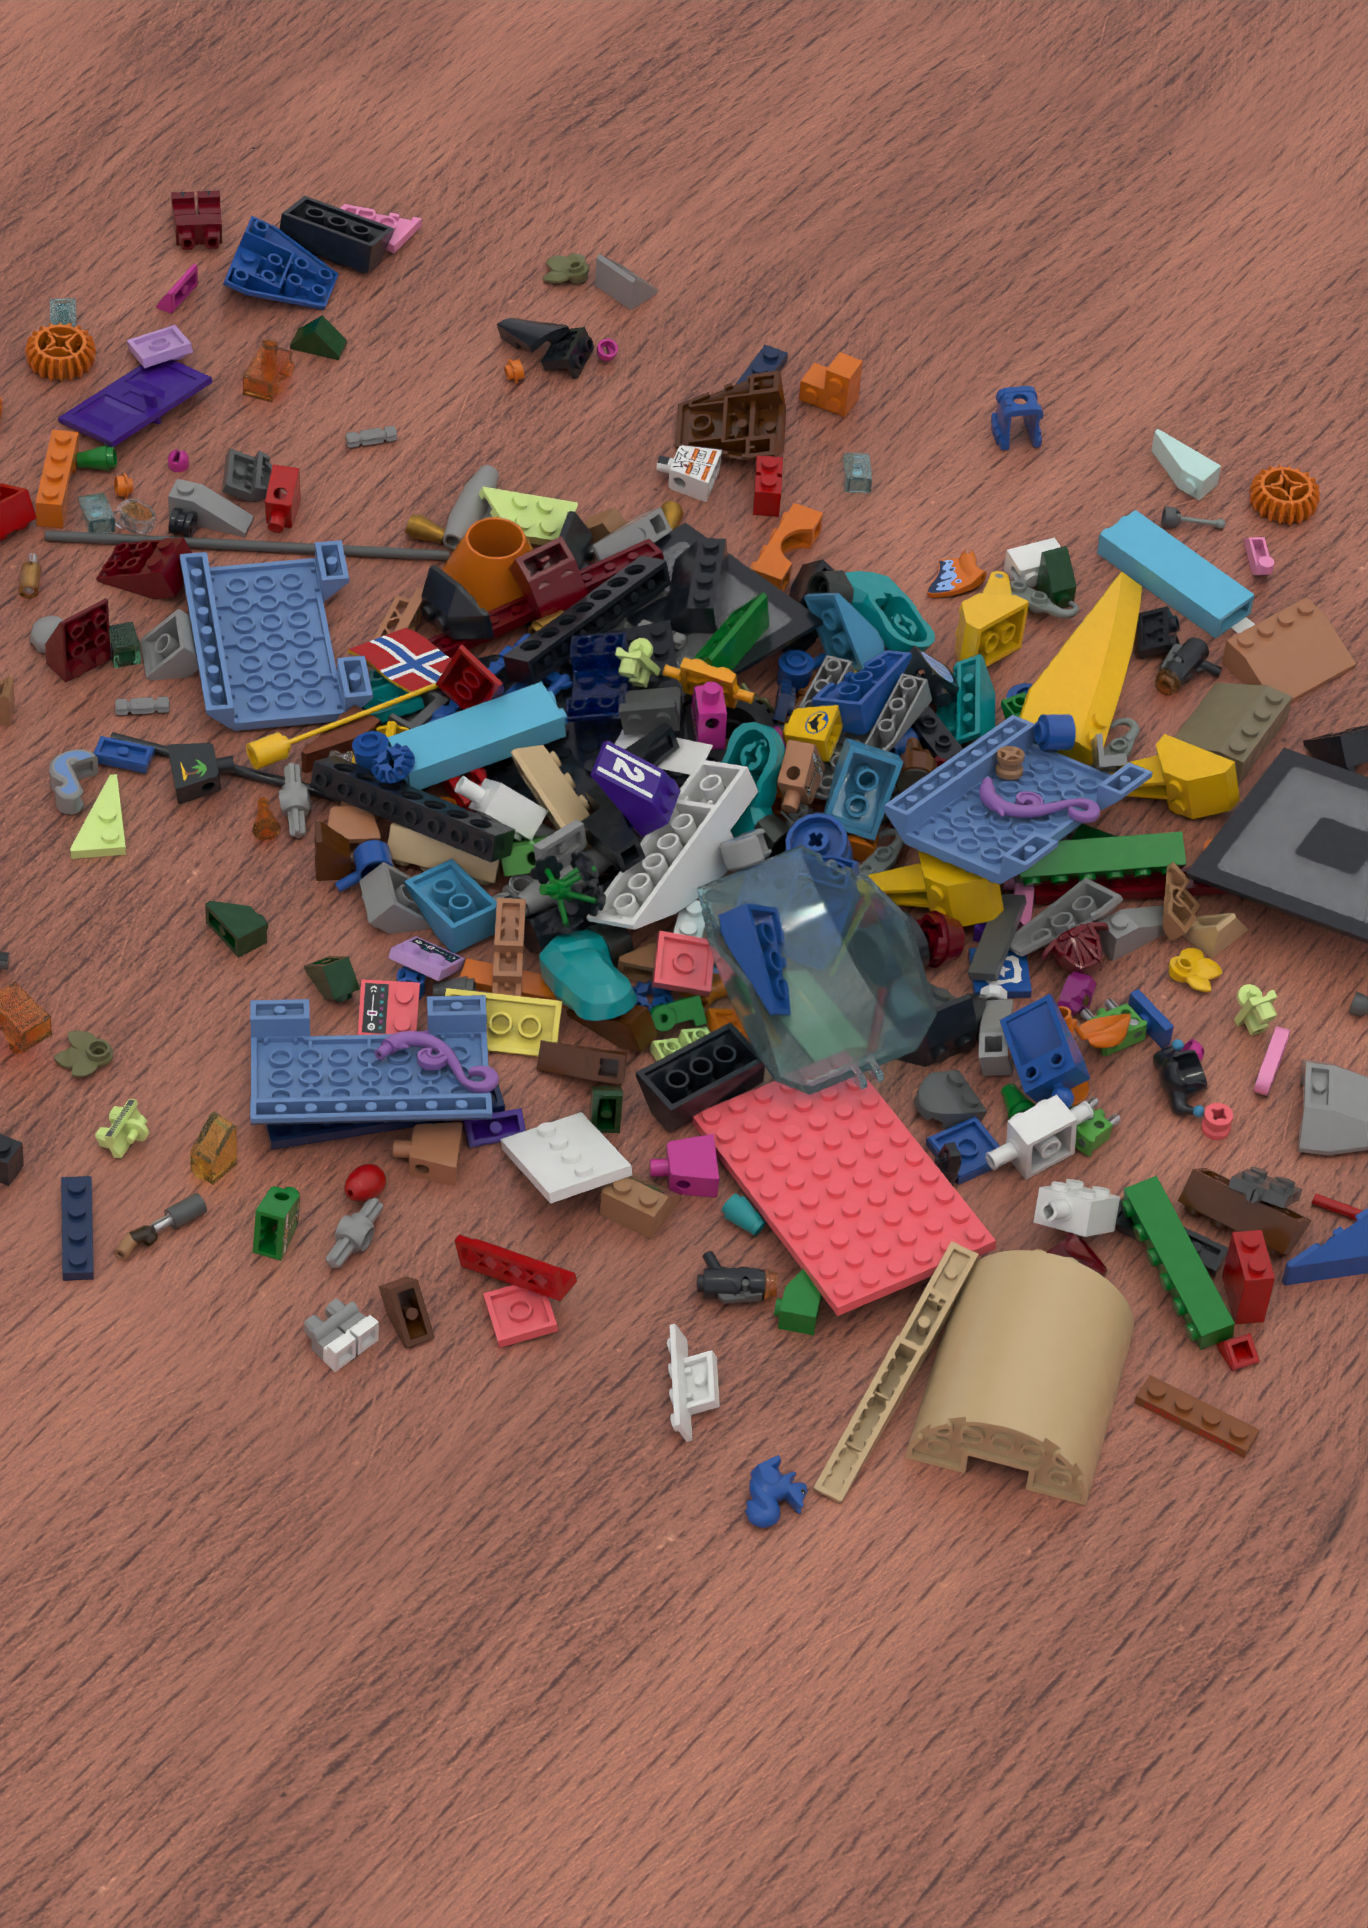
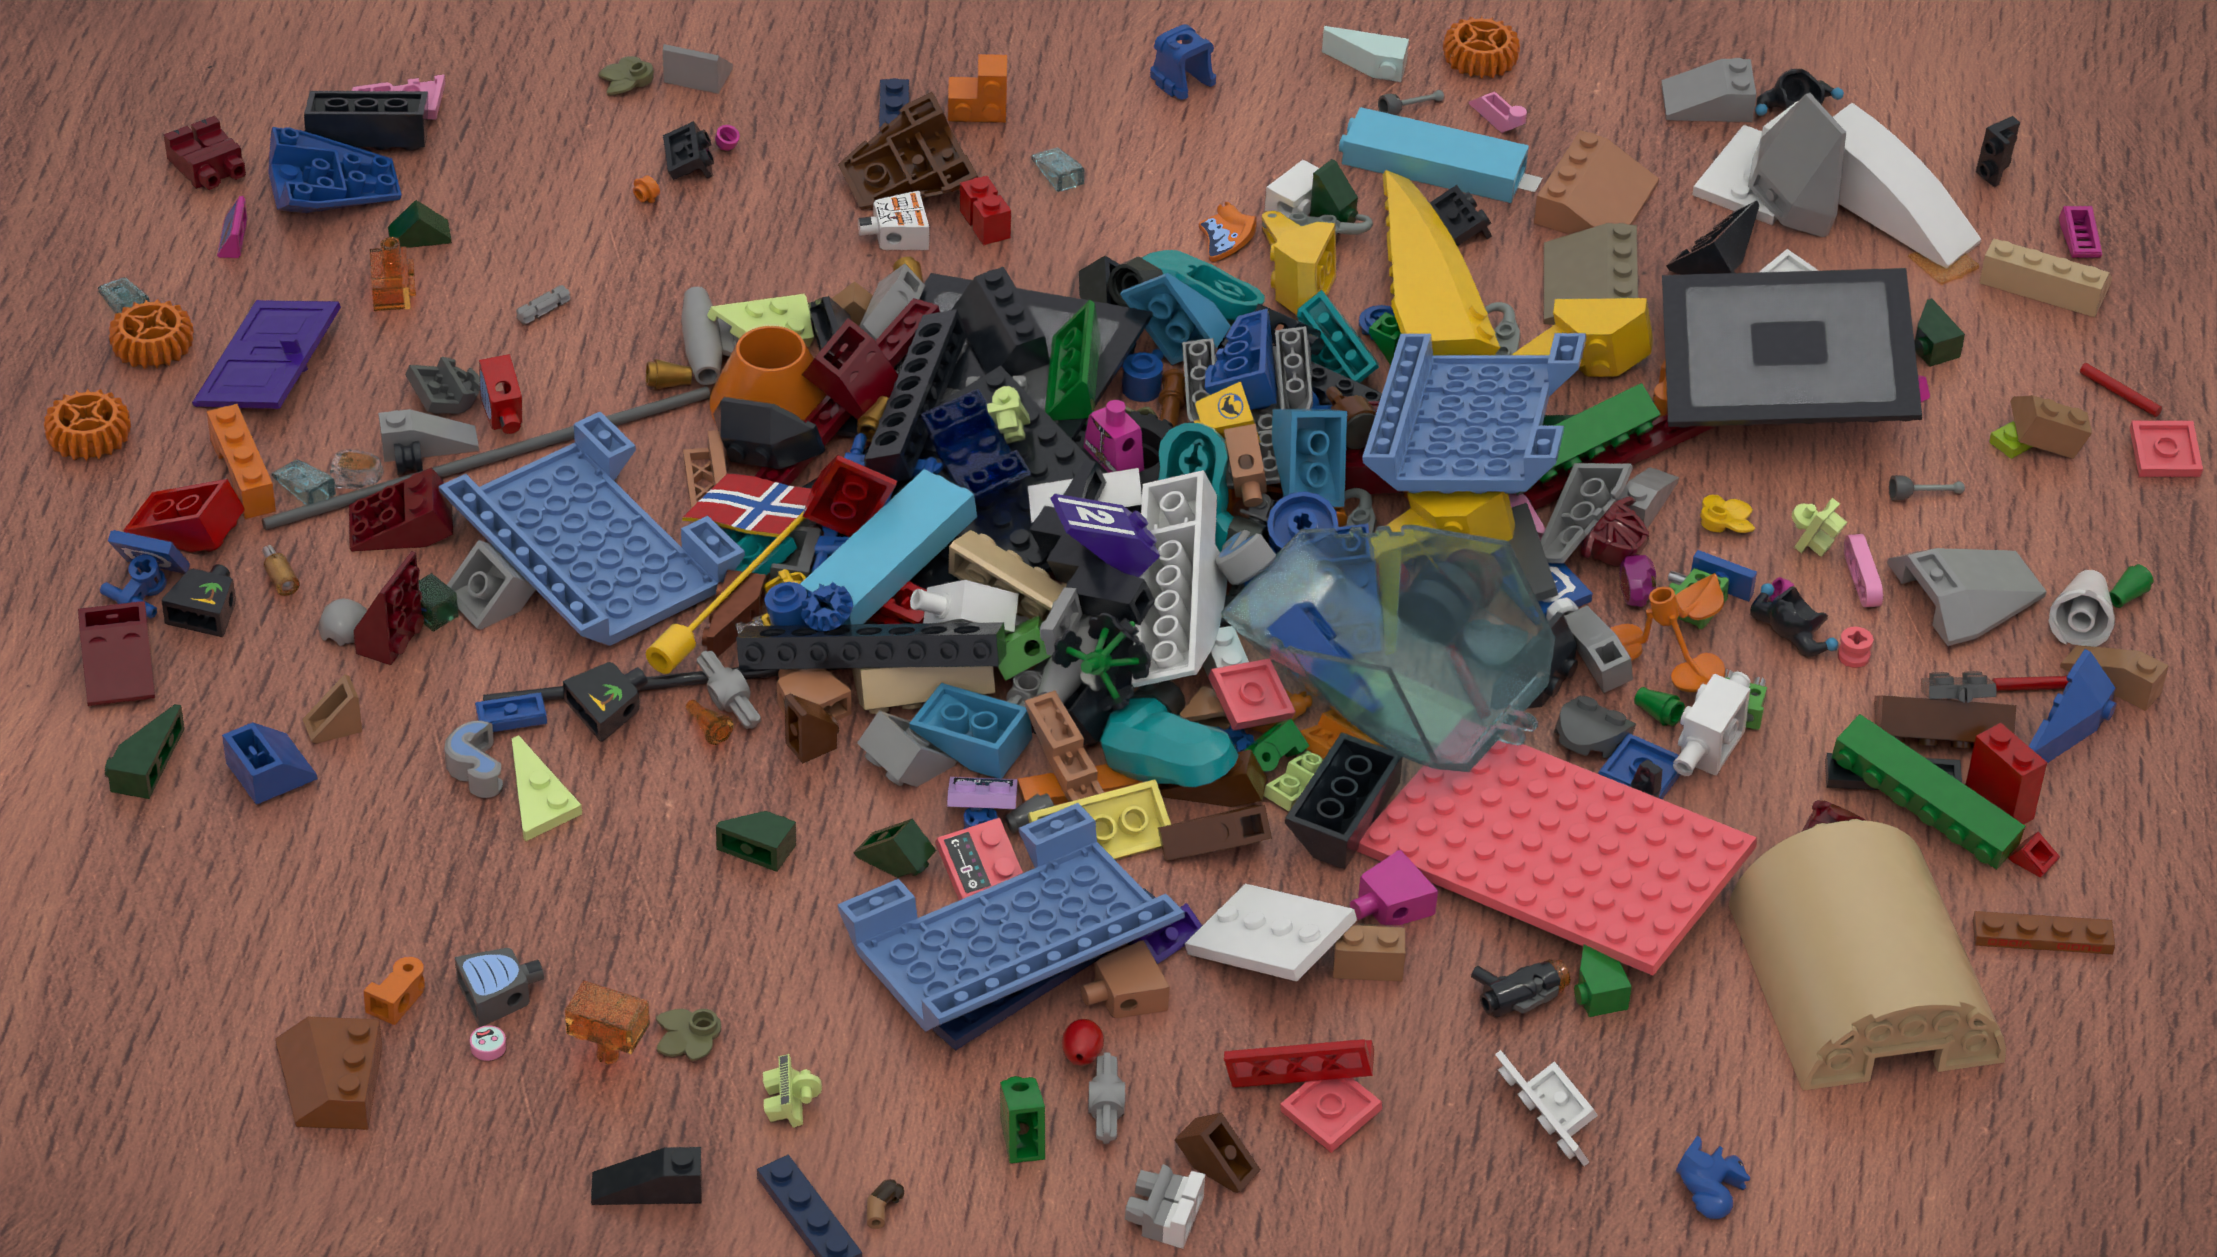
camera: 25 degrees left, 5 degrees down
(98, 458) = (270, 425): green cone -> none
(123, 486) = (315, 444): orange plate -> none
(142, 705) = (494, 656): light grey axle -> none
(160, 346) = (257, 291): lavender plate -> none
(181, 1213) = (911, 1151): dark grey piece -> none
(183, 461) = (356, 405): dark pink hinge -> none
(214, 1149) = (906, 1070): clear yellow slope -> none
(366, 858) = (853, 718): blue piece -> none
(444, 1056) = (1075, 888): medium lavender plant -> none
(530, 333) = (638, 147): black slope -> none
(606, 1108) = (1272, 865): dark green slope -> none
(650, 709) = (1054, 456): dark grey bracket -> none
(697, 673) = (1083, 400): light orange plate -> none
(742, 1213) = (1478, 918): teal cone -> none
(784, 699) = (1166, 401): dark blue plate -> none
(797, 530) = (1044, 244): orange arch -> none
(896, 1373) = (1746, 1009): tan slope -> none
(1009, 762) = (1437, 377): medium nougat wheel -> none
(1031, 805) = (1492, 408): medium lavender plant -> none
(1044, 1051) = (1667, 635): blue slope -> none
(1055, 732) = (1456, 334): blue piece -> none
(1077, 1208) = (1802, 777): white brick -> none
(1106, 763) = (1509, 340): light grey panel -> none
(1178, 904) = (1682, 468): medium nougat slope -> none
(1182, 663) = (1505, 236): black piece -> none
(1215, 932) = (1717, 472): tan slope -> none

